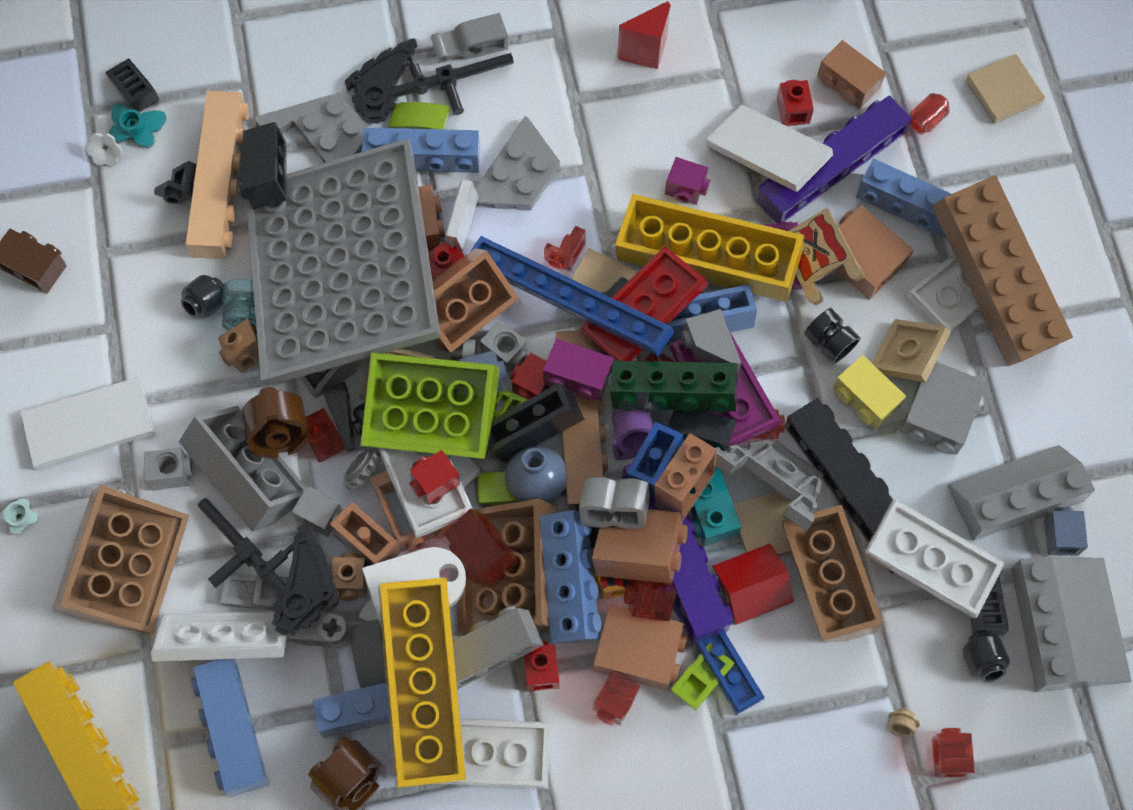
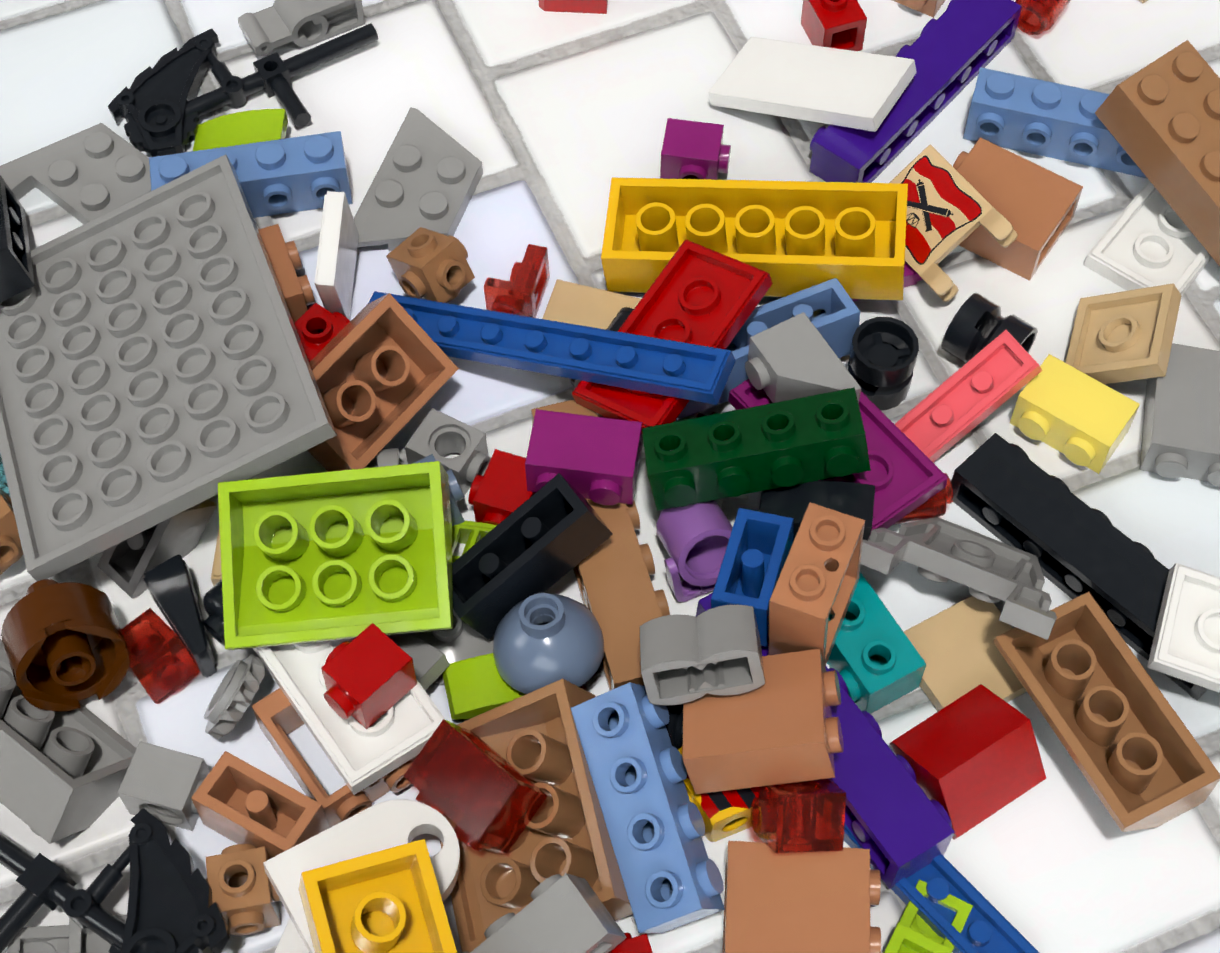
camera: 10 degrees left, 10 degrees down
(516, 227) = (431, 265): none -> medium nougat brick
(764, 340) = (883, 360): none -> black wheel
(806, 373) = (969, 396): none -> coral tile

